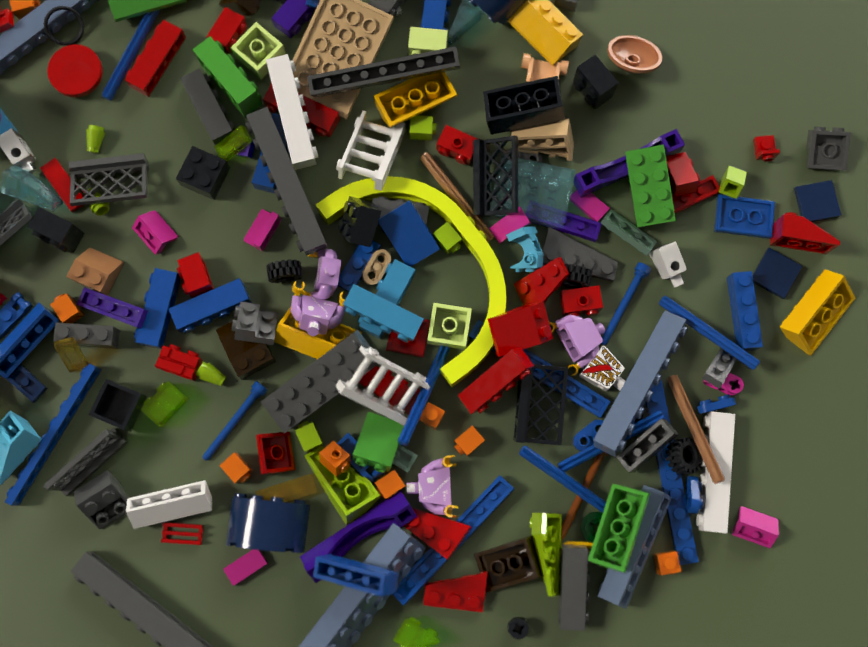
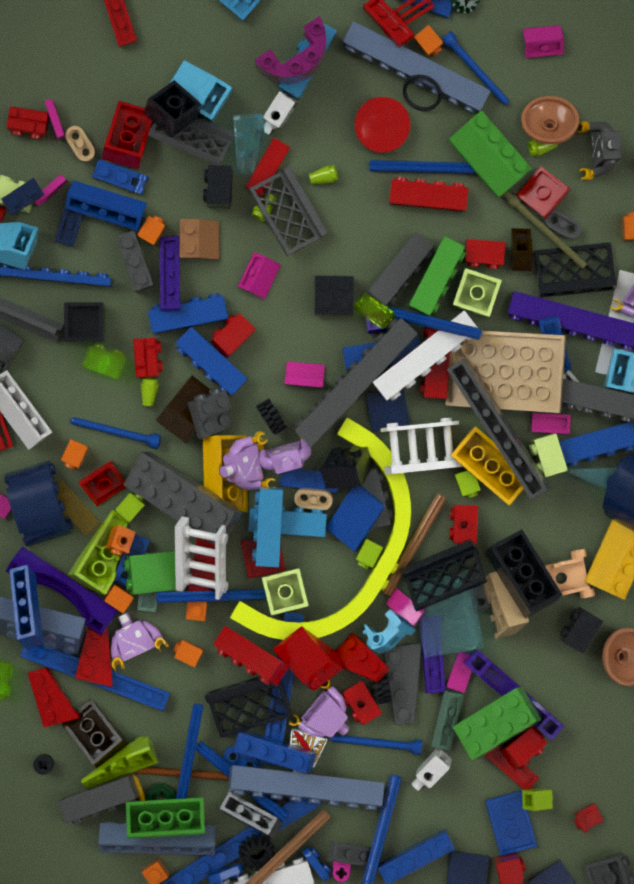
camera: 65 degrees right, 10 degrees up
(71, 354) = (111, 257): clear yellow tile -> none
(269, 80) = (437, 323): none -> blue axle
(324, 173) = (385, 412): none -> dark blue tile
(399, 42) = (550, 423): none -> dark pink tile
(595, 396) = (275, 751): none -> blue brick

